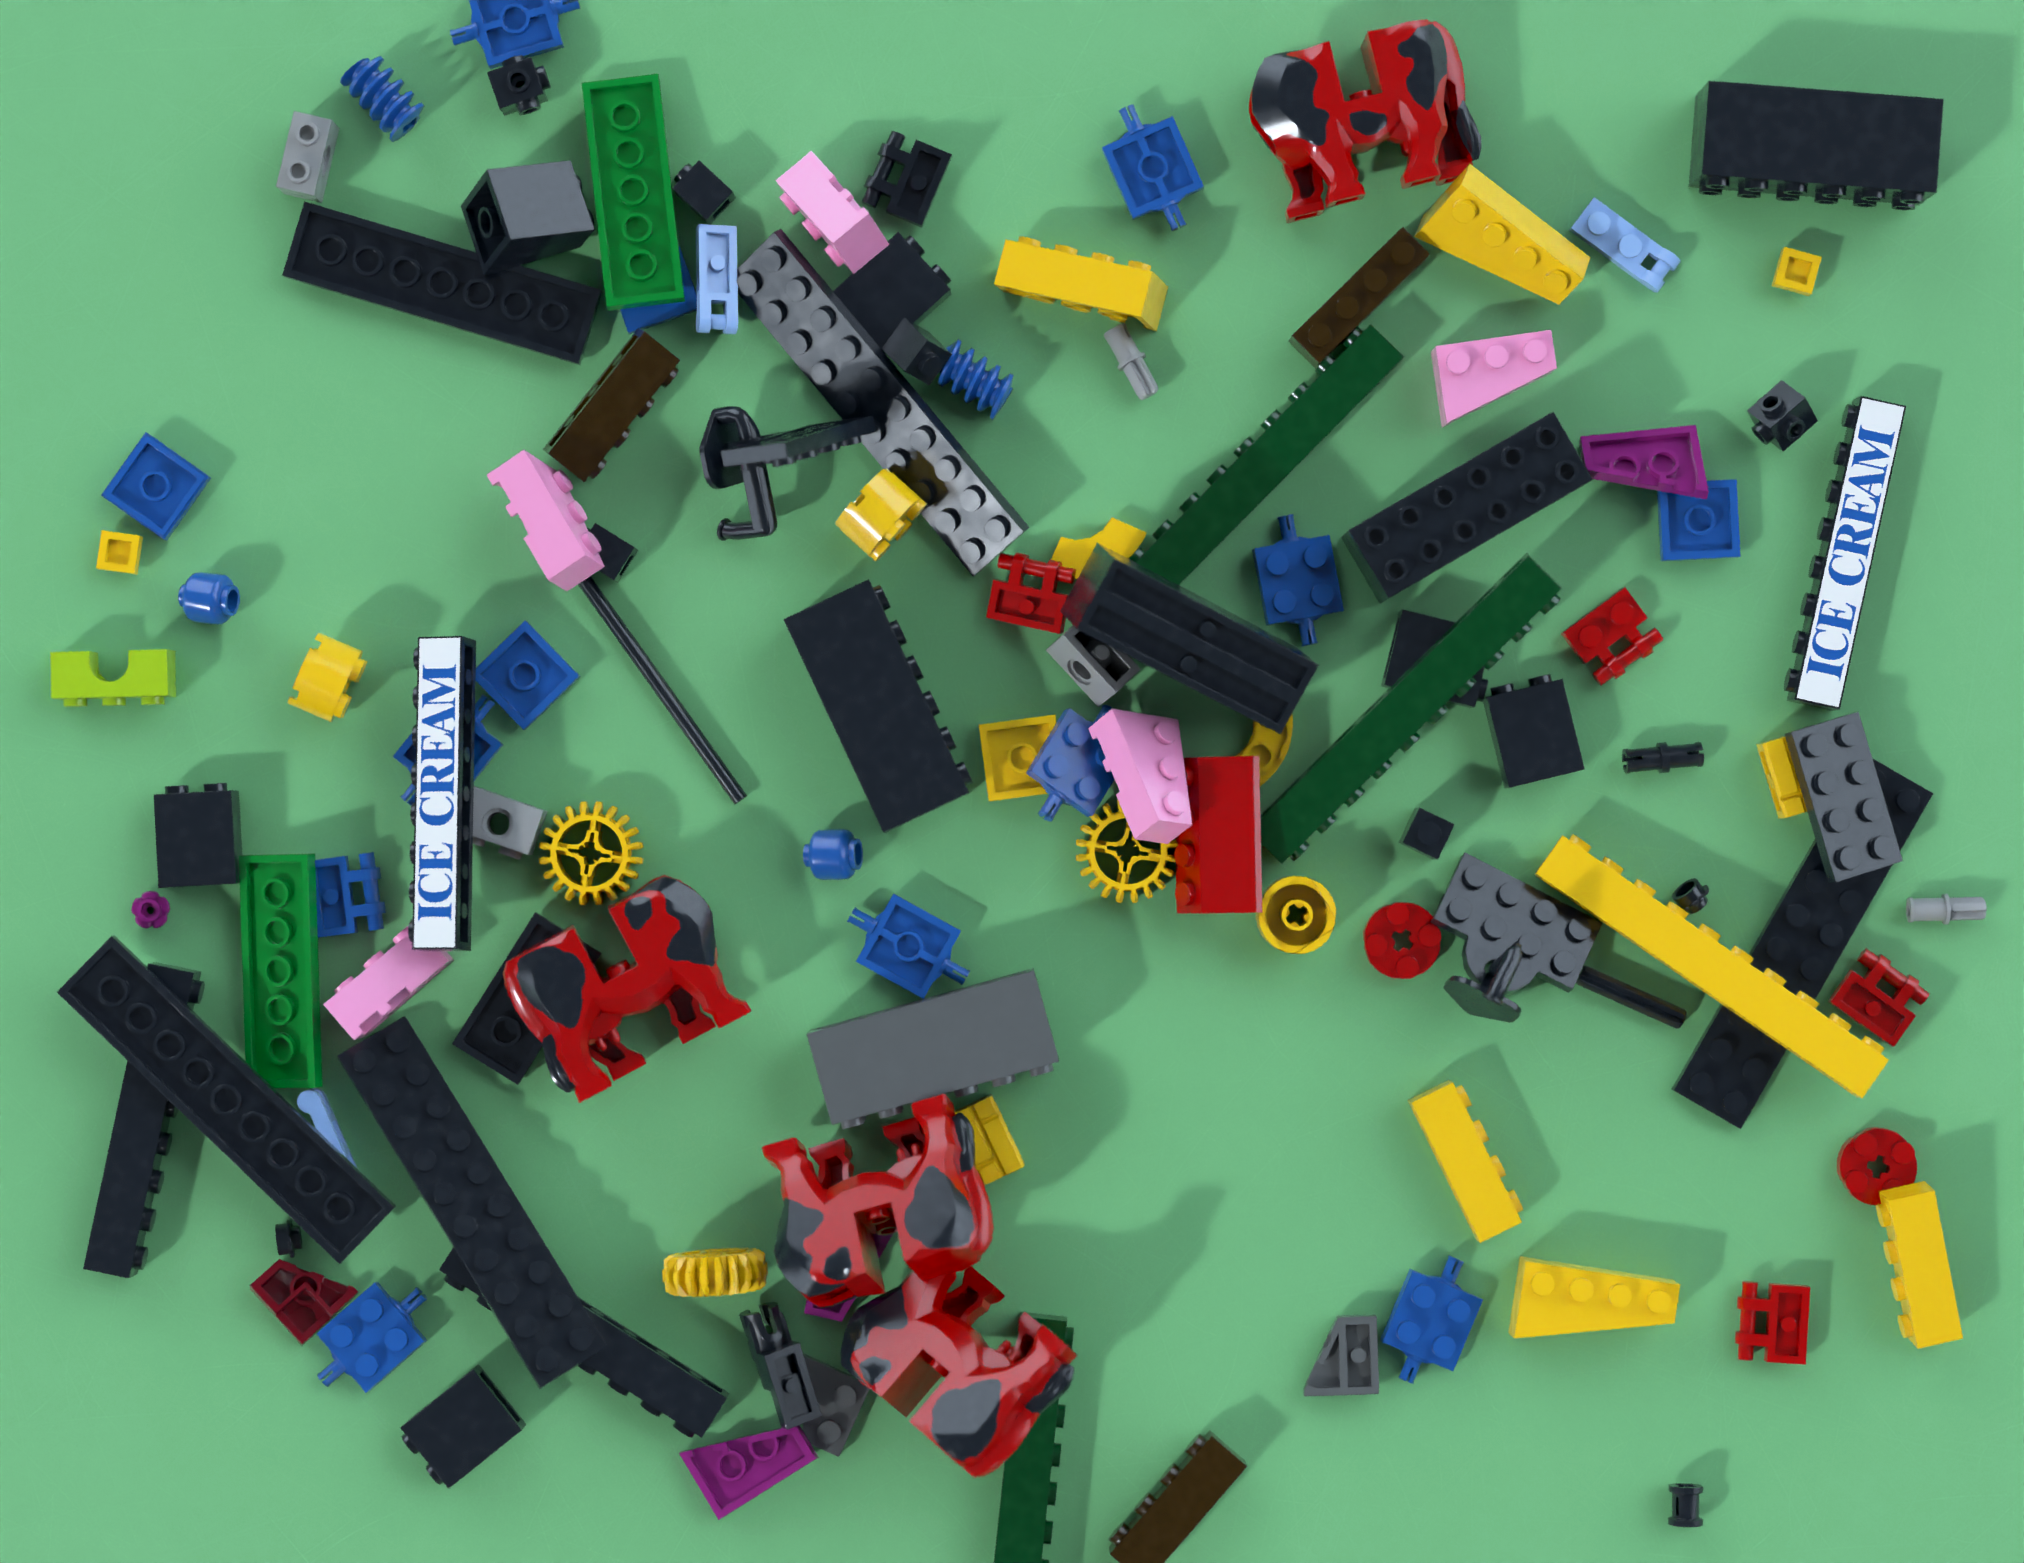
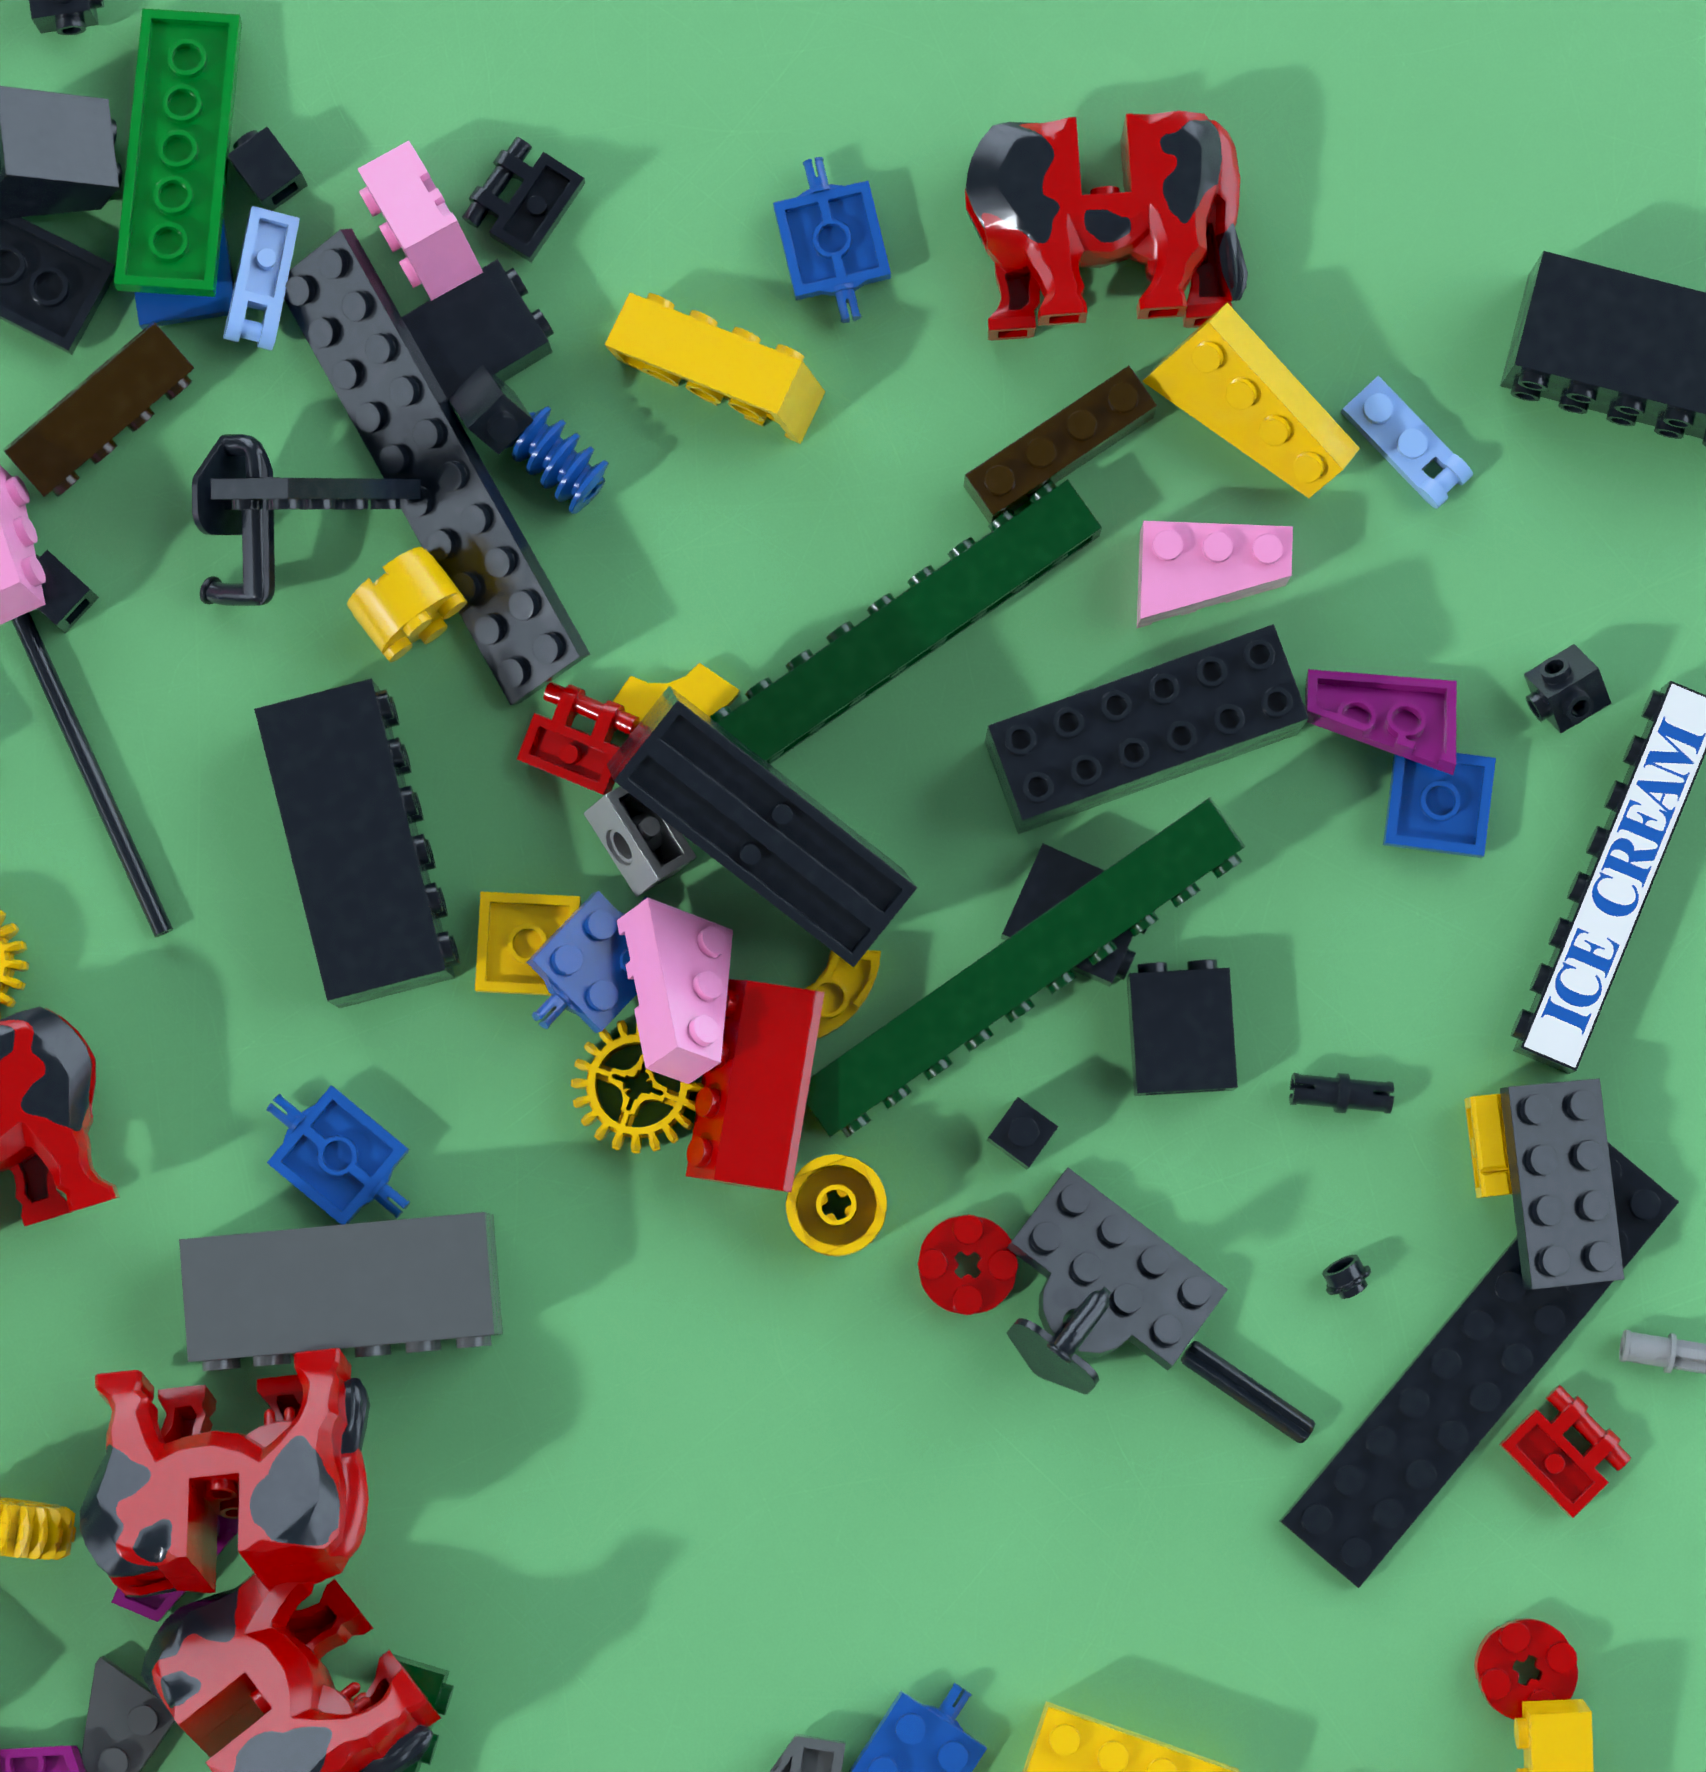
camera: 10 degrees right, 5 degrees down
(781, 1365) = (67, 1666): black plate -> none
(833, 854) = (265, 1022): blue head -> none
(994, 1145) = (395, 1427): yellow brick -> none
(1131, 361) = (760, 473): light grey axle -> none
(1297, 580) = (919, 784): blue plate -> none
(1465, 1161) = (996, 1563): yellow brick -> none
(1605, 626) = (1297, 914): red plate -> none
(1712, 967) = (1356, 1371): yellow brick -> none
(1796, 271) = (1617, 513): yellow plate -> none

